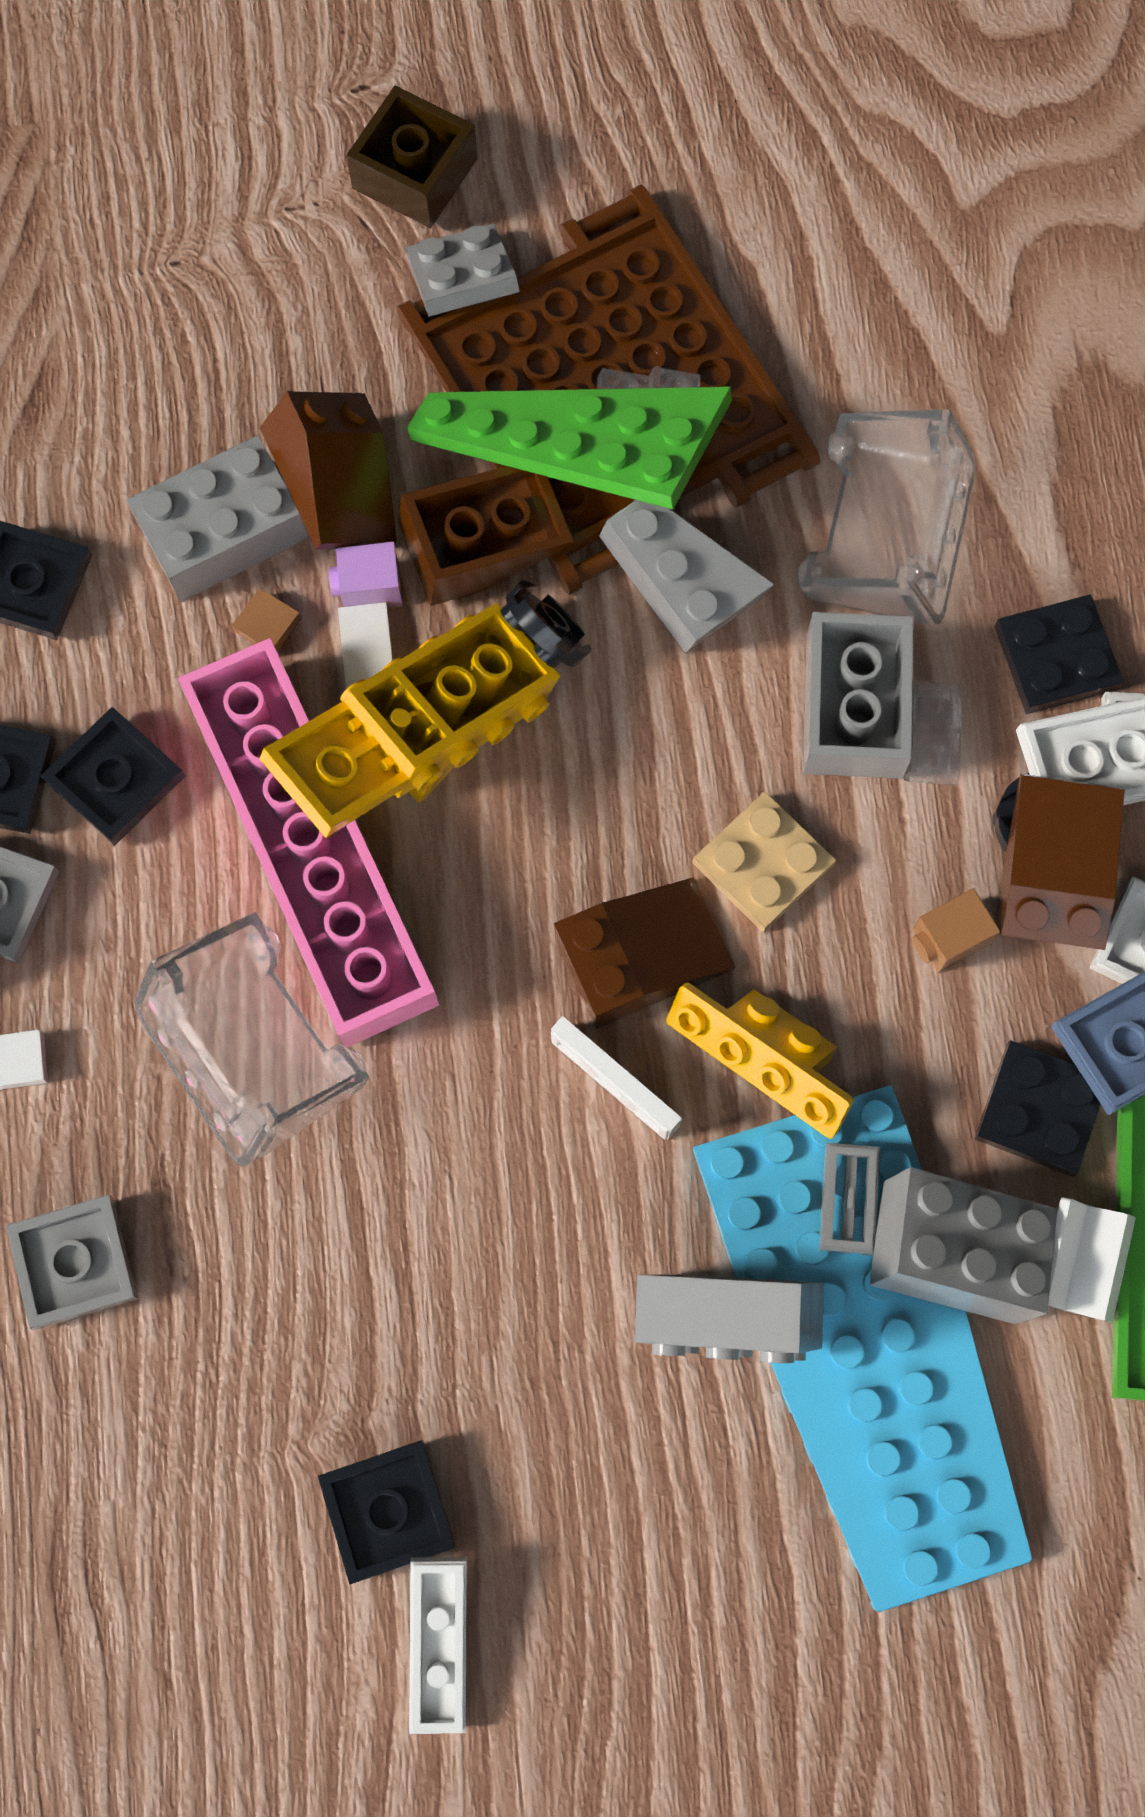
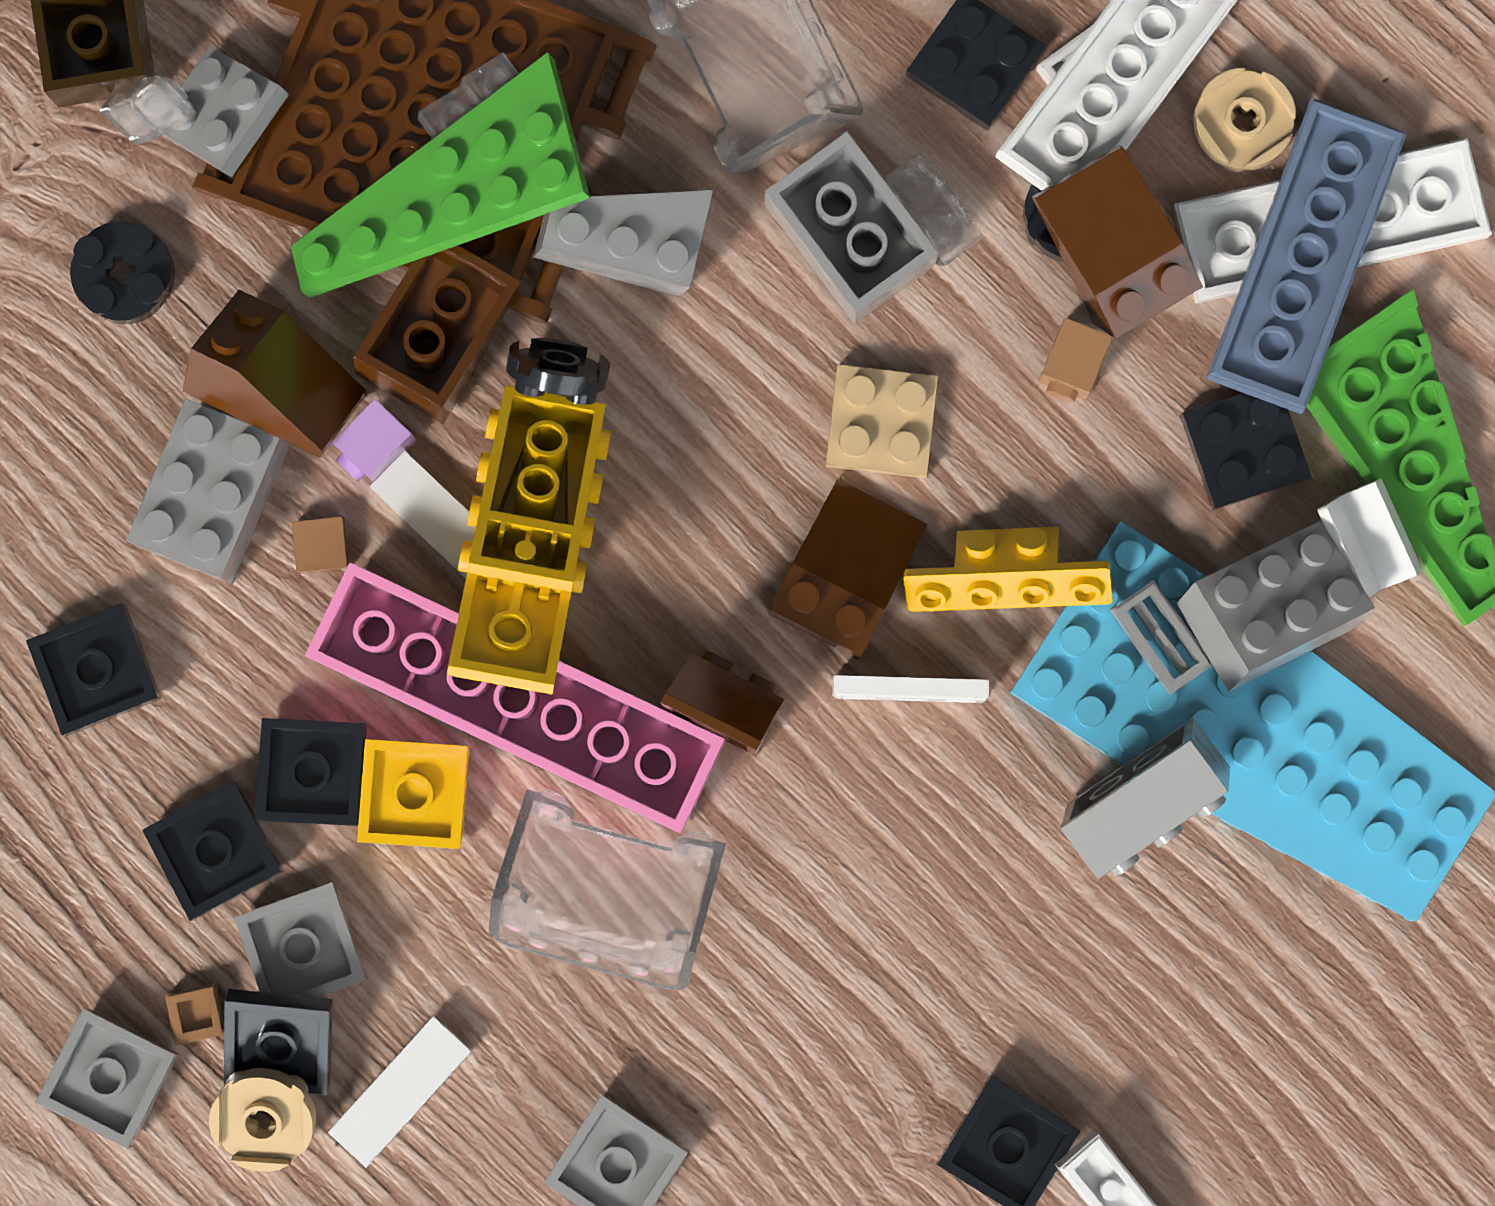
camera: 40 degrees left, 10 degrees up
(172, 852) = (413, 794): none -> yellow plate
(292, 304) = (146, 288): none -> black plate
(410, 223) = (149, 109): none -> clear slope
(458, 966) = (724, 702): none -> reddish brown slope

